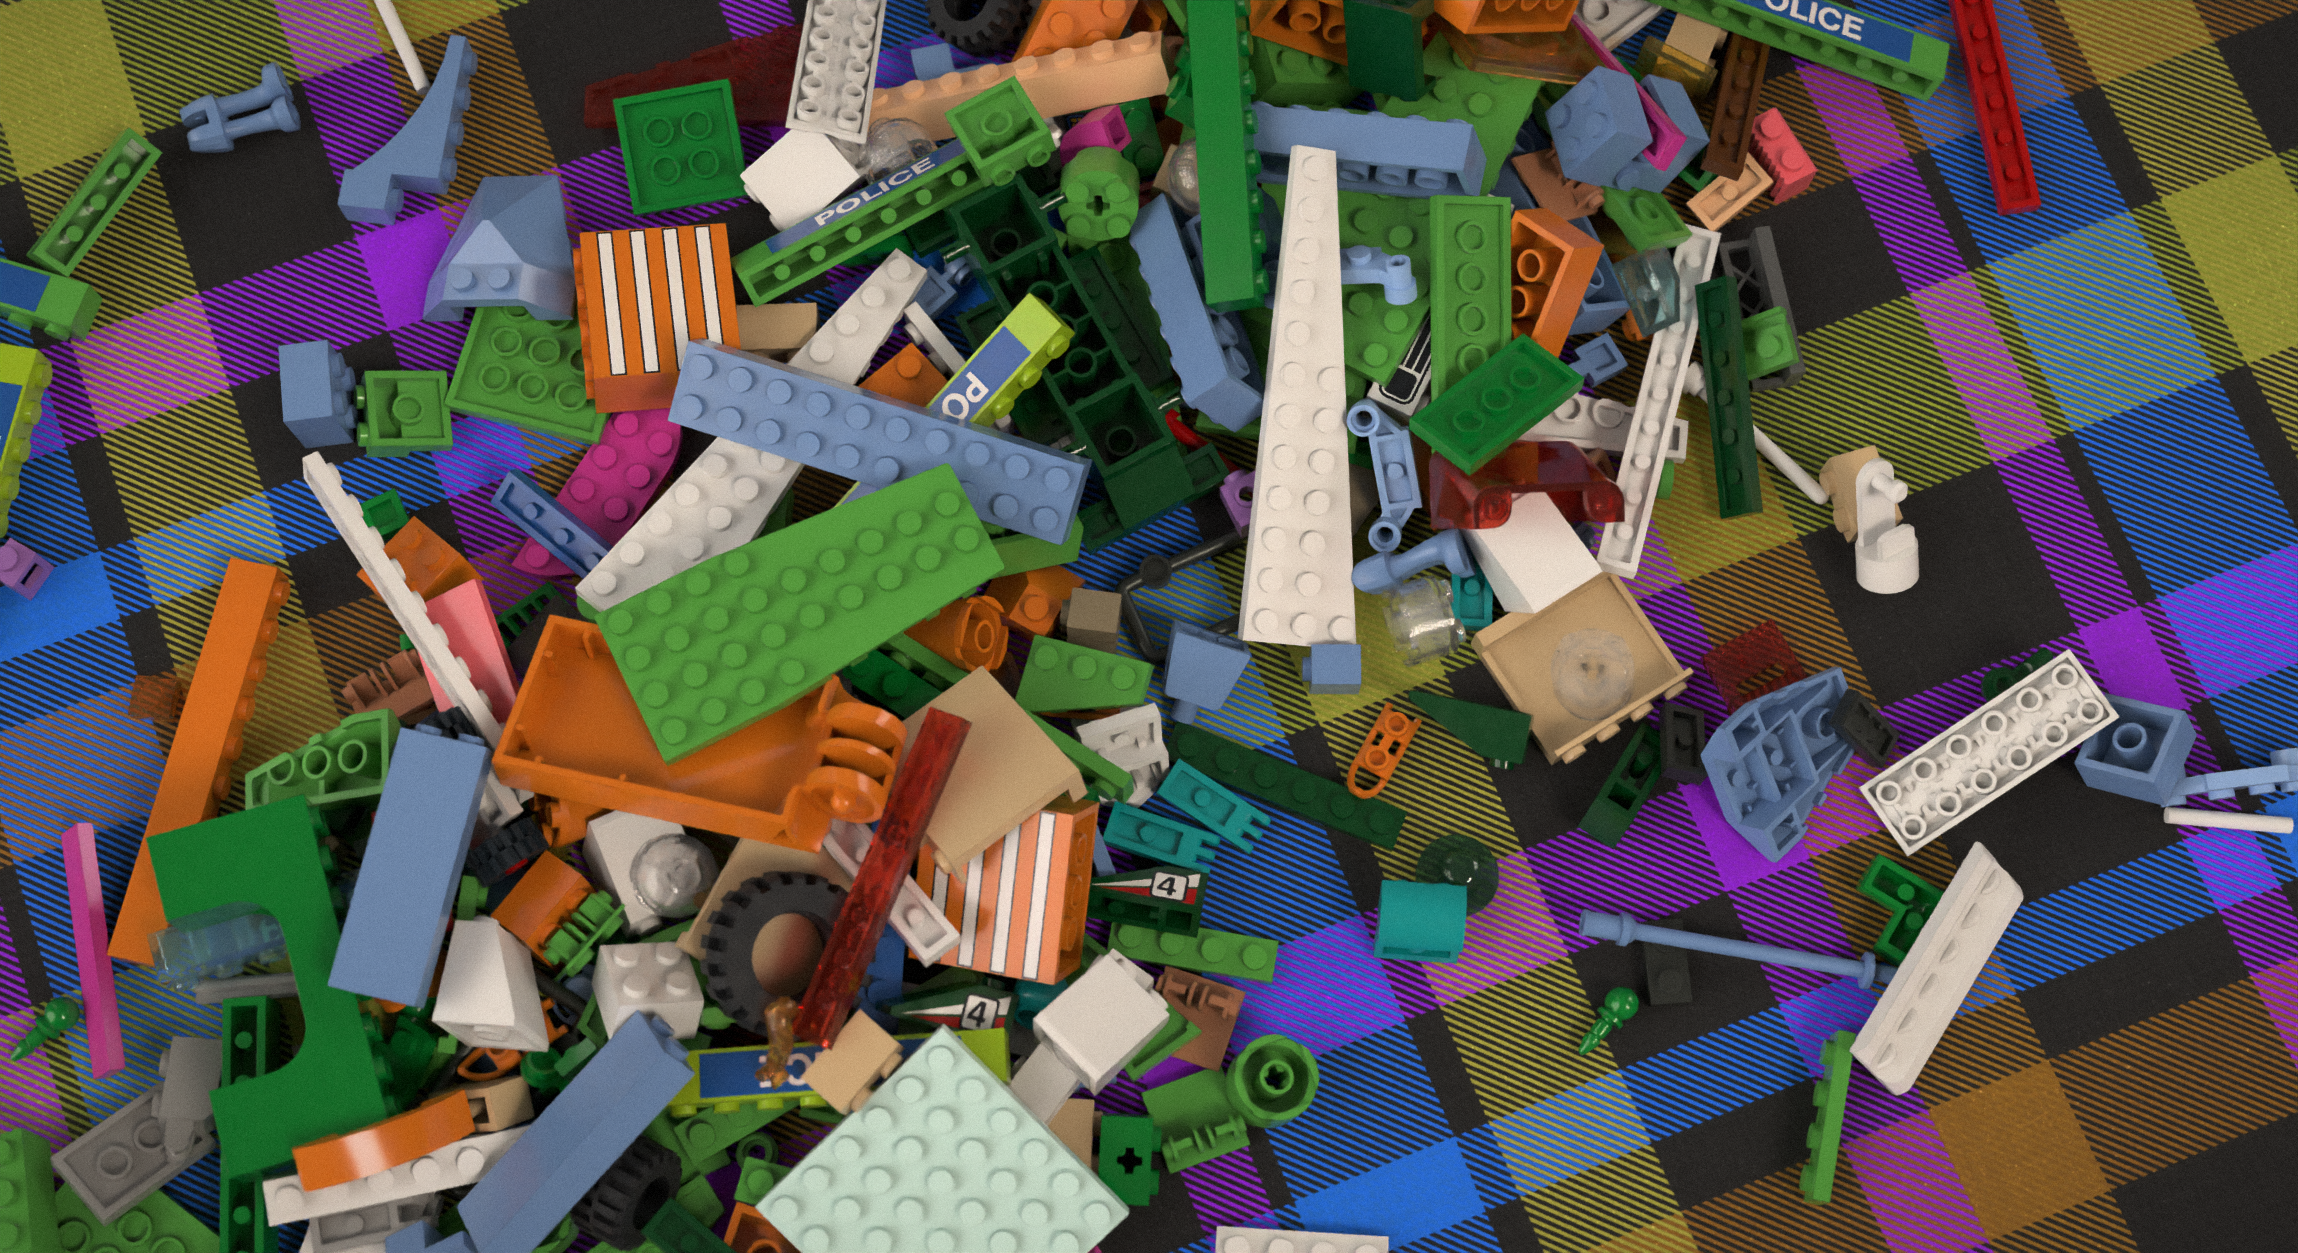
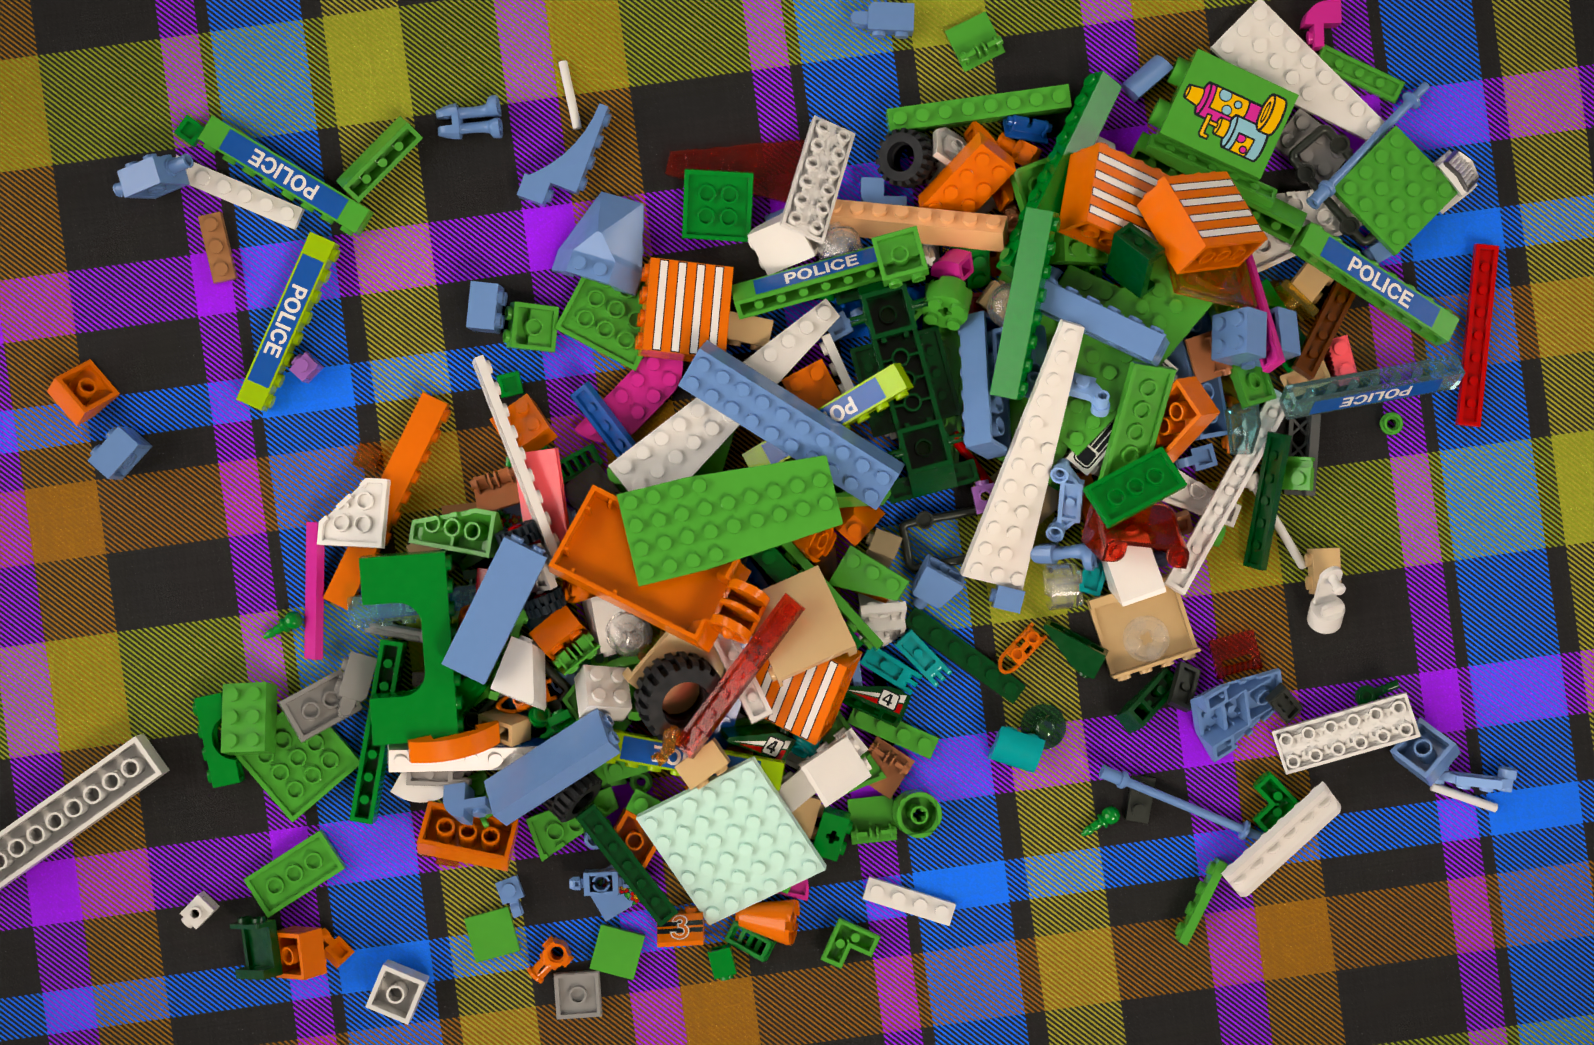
camera: 15 degrees right, 15 degrees up
(146, 792) = (359, 517): none -> white plate
(1841, 175) = (1371, 387): none -> clear light blue brick
(1899, 228) = (1398, 423): none -> bright green plate

